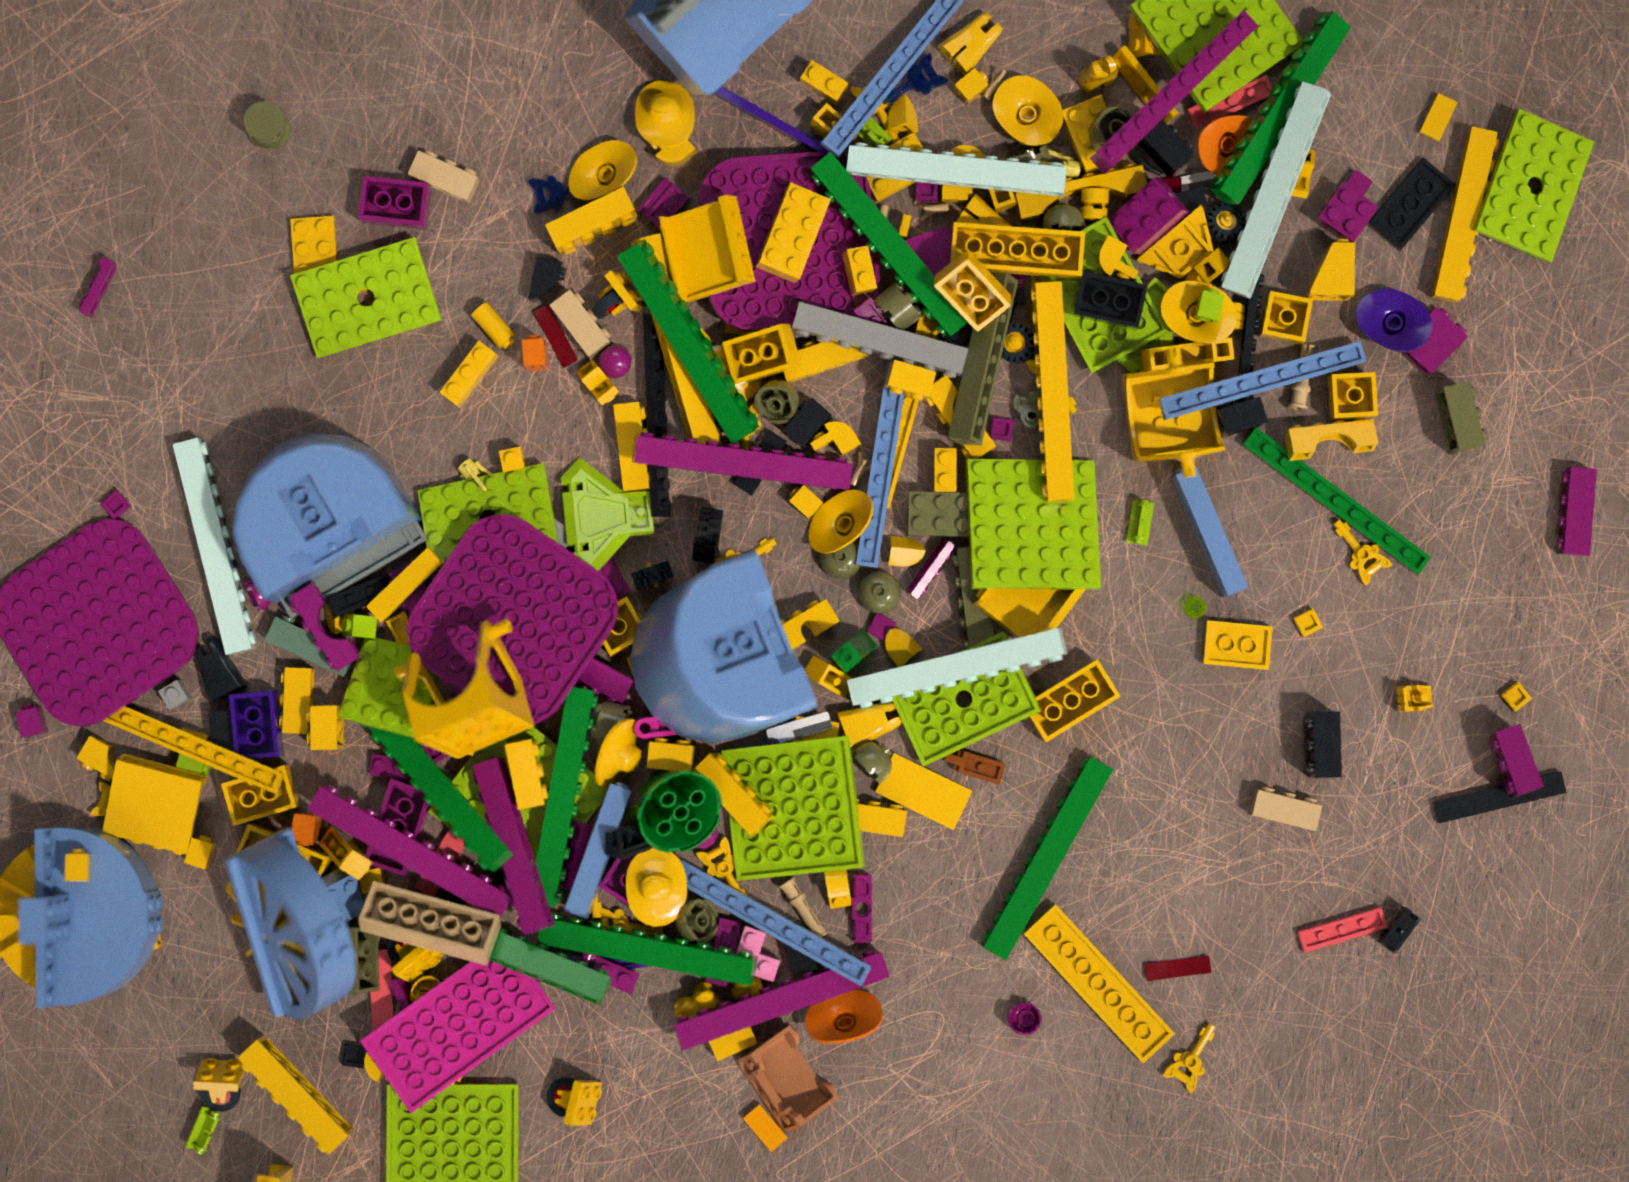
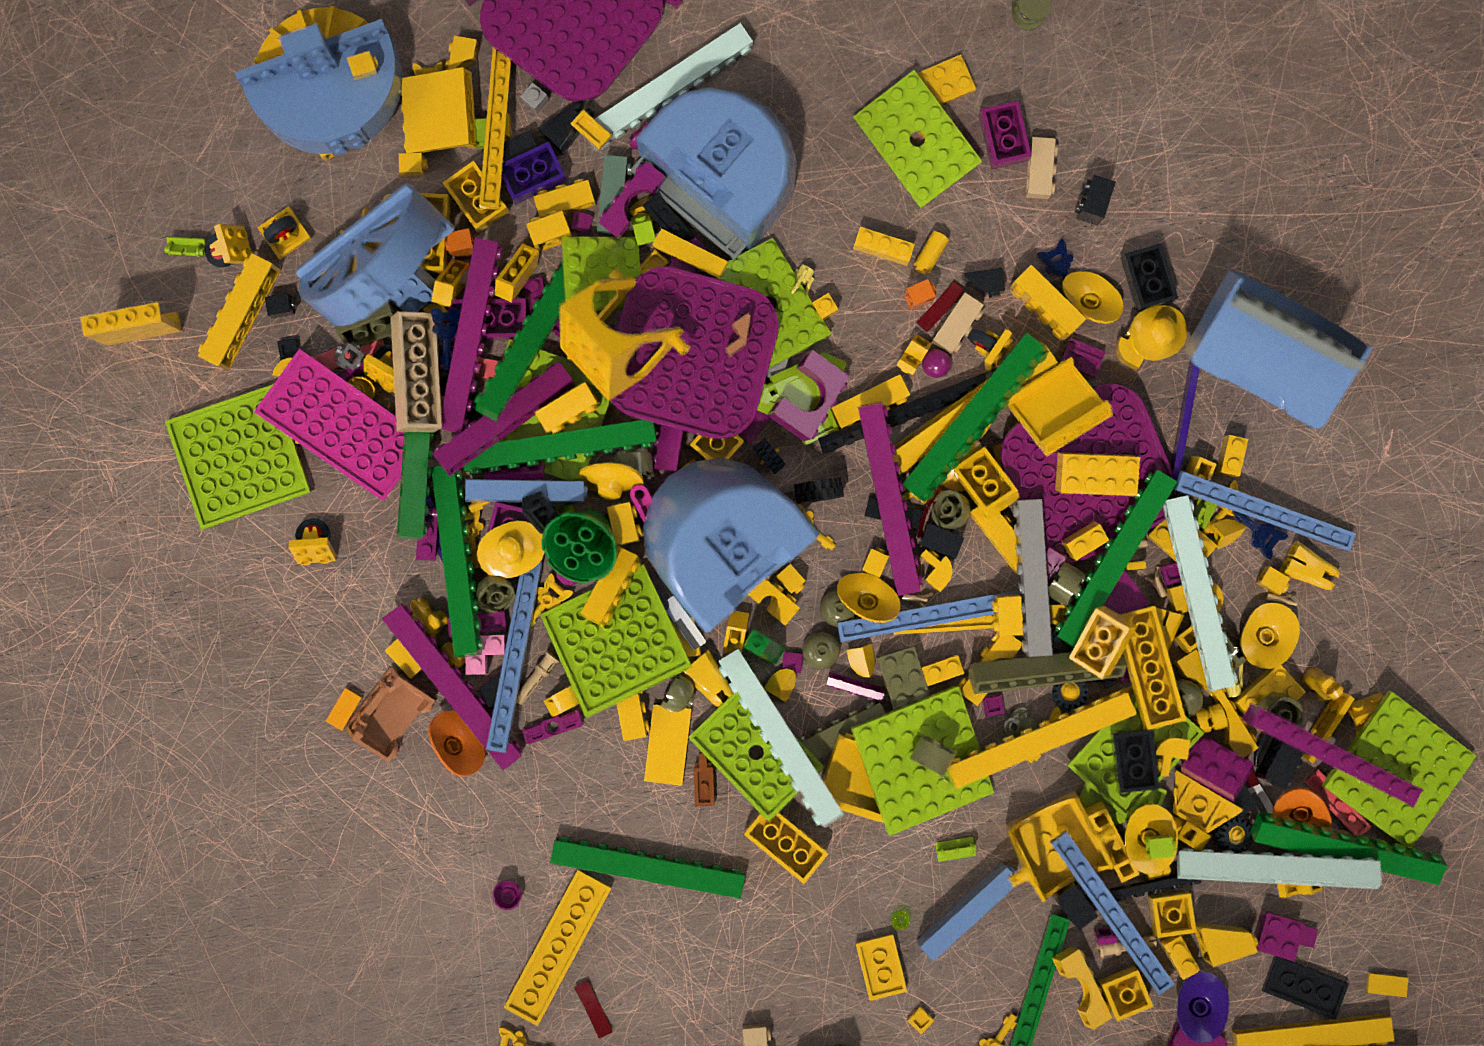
camera: 65 degrees right, 0 degrees up
(225, 1017) = (284, 233): none -> yellow plate
(232, 645) = (591, 129): none -> yellow tile
(304, 1048) = (280, 305): none -> black brick
(328, 690) = (581, 222): none -> magenta tile
(359, 778) = (516, 272): none -> yellow brick
(388, 983) = (355, 359): none -> flat silver brick
(397, 876) = (445, 331): none -> clear blue piece
(499, 131) = (1095, 199): none -> black brick
(506, 557) = (741, 329): none -> nougat slope
(596, 482) = (829, 381): none -> magenta arch
(602, 103) = (1149, 277): none -> black brick
(767, 426) = (920, 530): none -> dark red sticker
(792, 597) = (791, 579): none -> yellow brick
(1030, 511) = (933, 755): none -> olive brick
(1285, 396) = (1105, 936): none -> magenta tile
(1333, 325) = (1180, 956): none -> yellow brick

